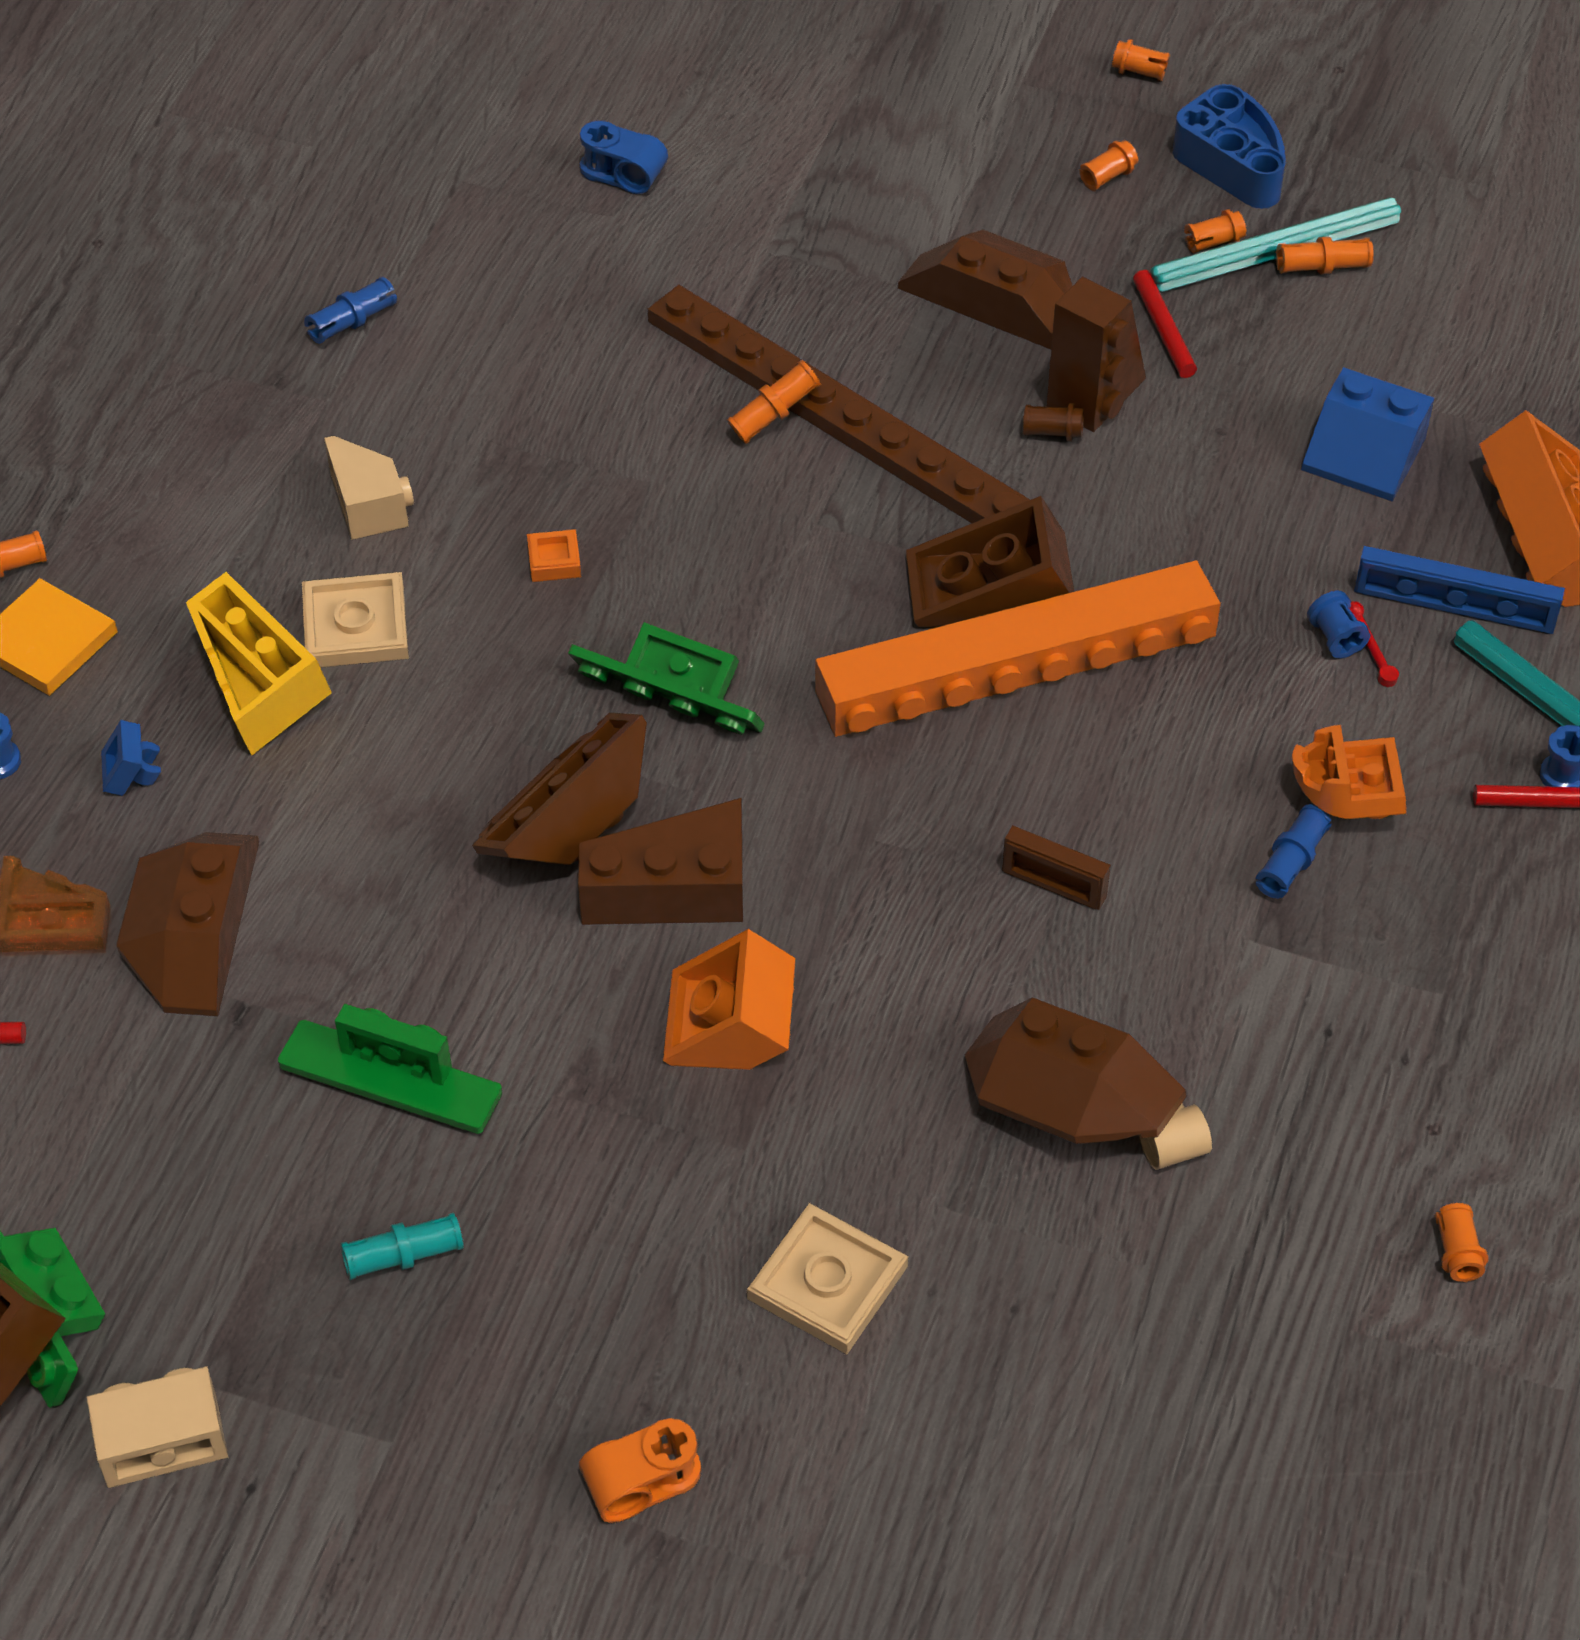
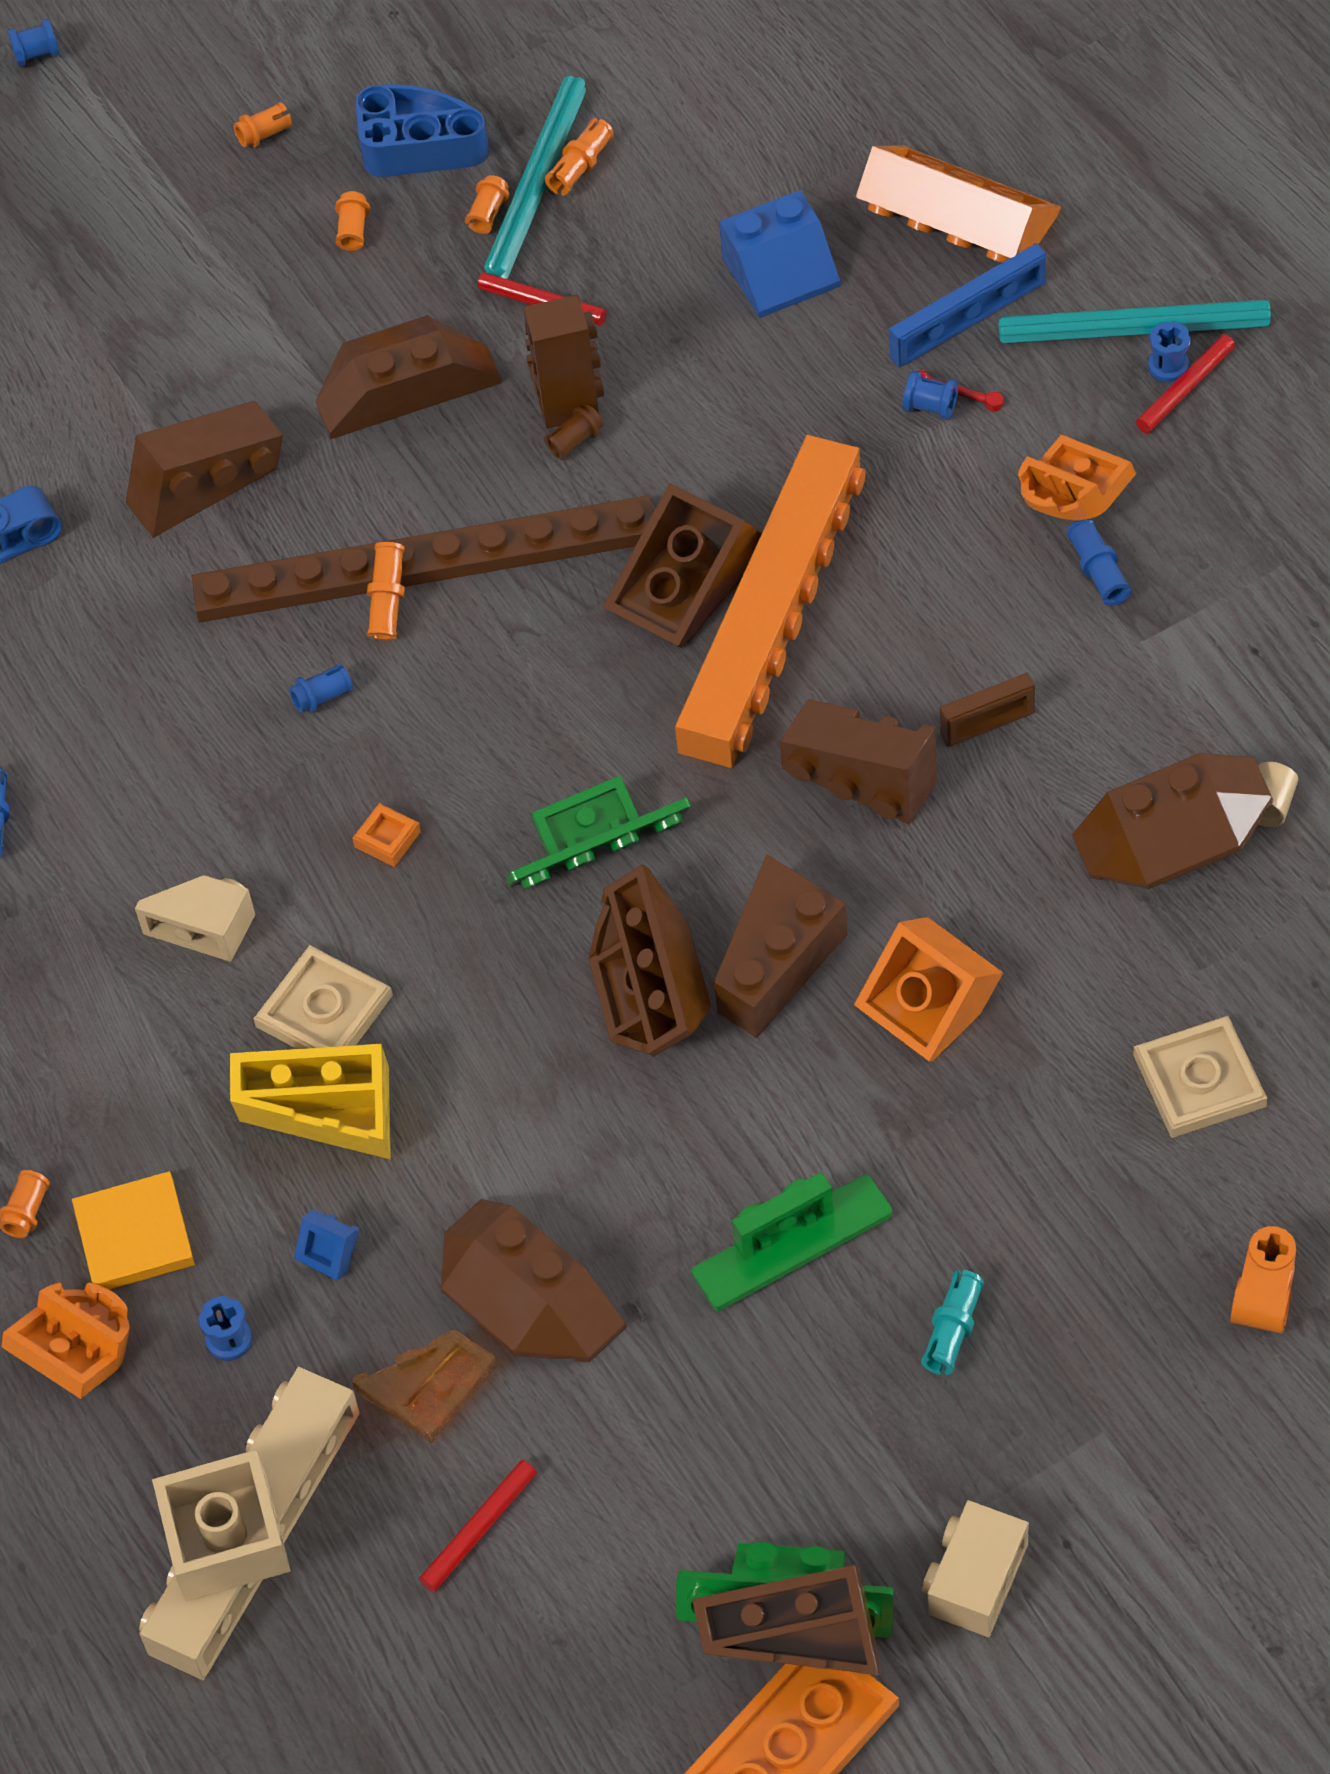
camera: 45 degrees left, 5 degrees up
(648, 425) = (320, 688): none -> blue pin
(782, 219) = (199, 463): none -> reddish brown wedge
(912, 812) = (862, 758): none -> reddish brown wedge

